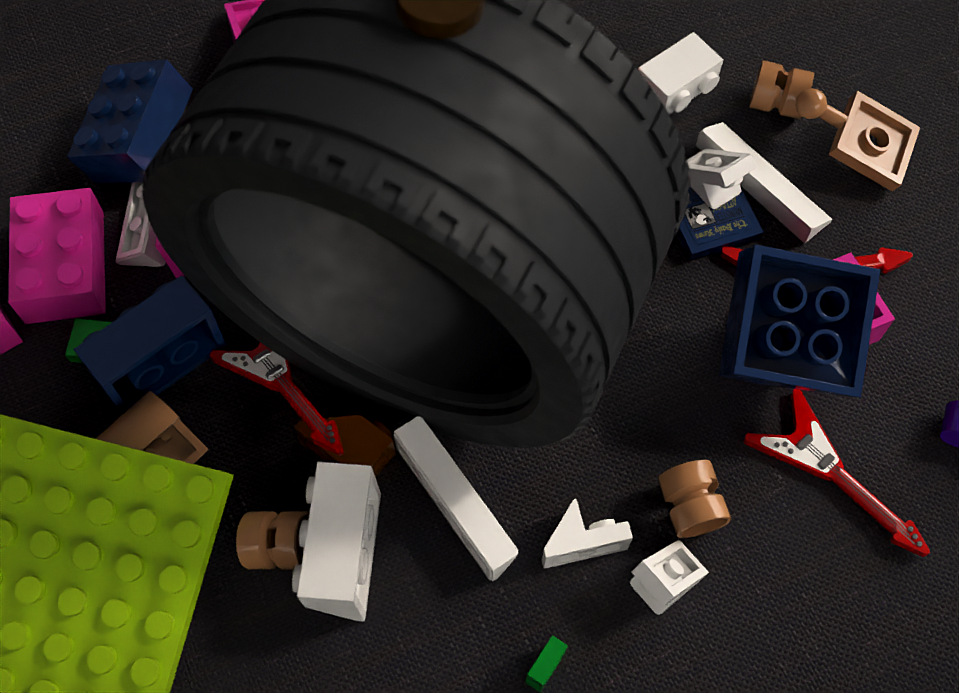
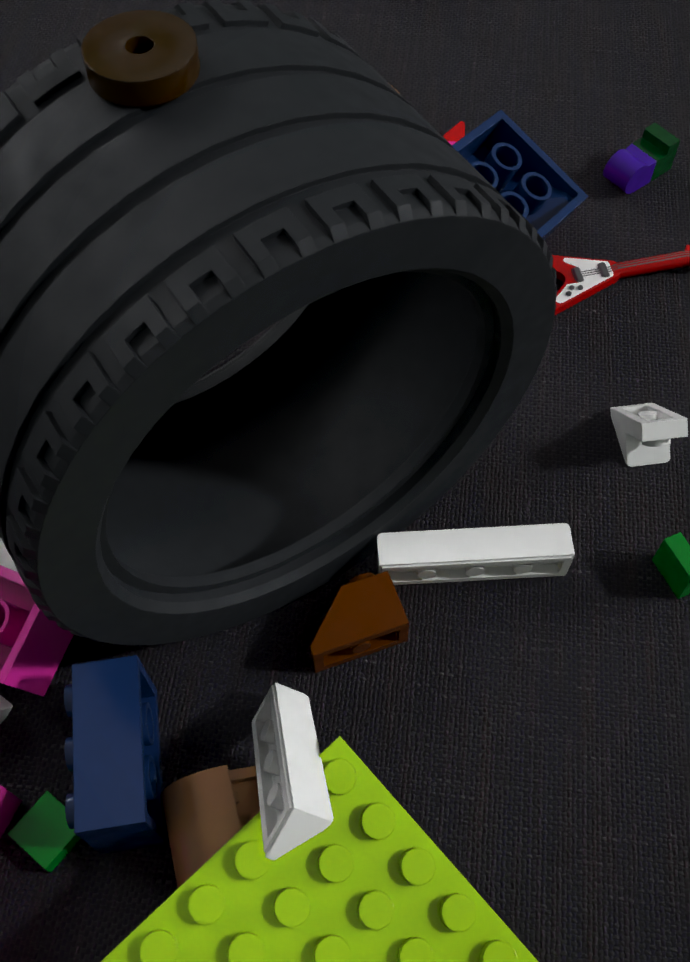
camera: 55 degrees left, 5 degrees down
(191, 454) = (289, 772): none -> white slope
(270, 539) = (415, 755): medium nougat wheel -> none
(275, 373) = (227, 650): piece -> none
(338, 540) = (469, 669): white slope -> none
(574, 543) = (570, 477): white slope -> none
(693, 494) = (590, 370): medium nougat wheel -> none

